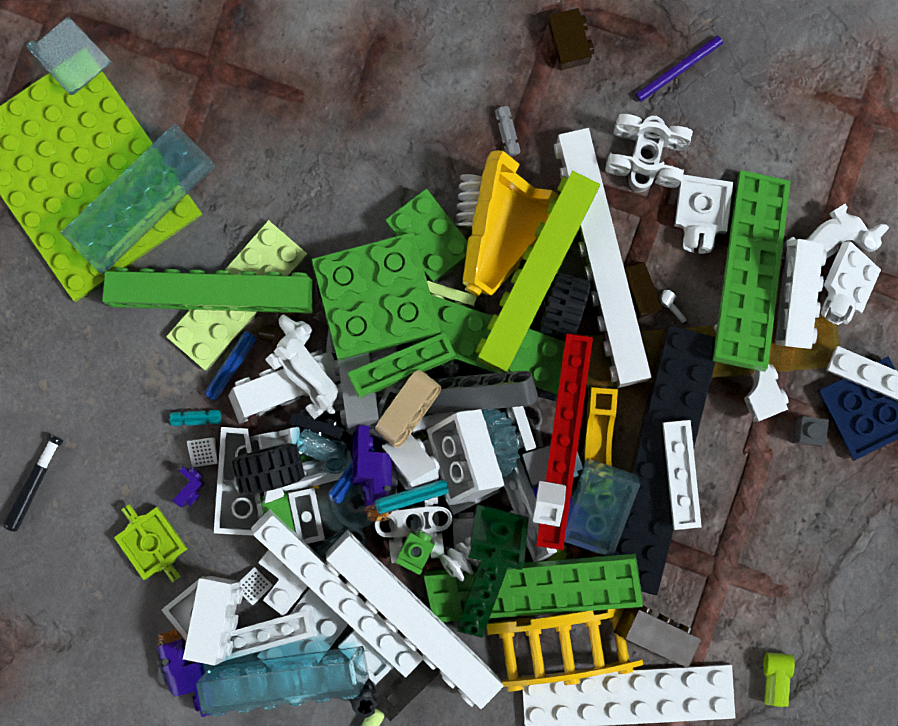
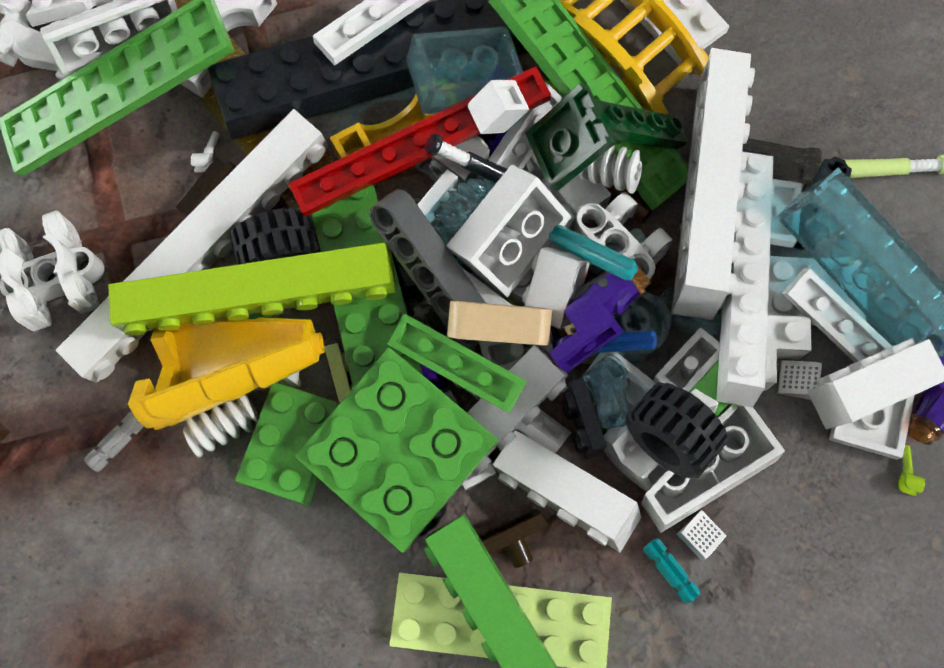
camera: 120 degrees left, 10 degrees down
(144, 605) = (908, 482): none -> lime hand
(151, 543) = (842, 521): lime plate -> none
(189, 493) = (757, 516): dark purple bracket -> none
(230, 366) = (586, 571): blue axle -> none
(302, 367) = (534, 476): white animal -> none
(415, 539) = (640, 224): bright green brick -> none
(517, 474) = (469, 161): none -> black piece
(702, 211) = (84, 180): white plate -> none

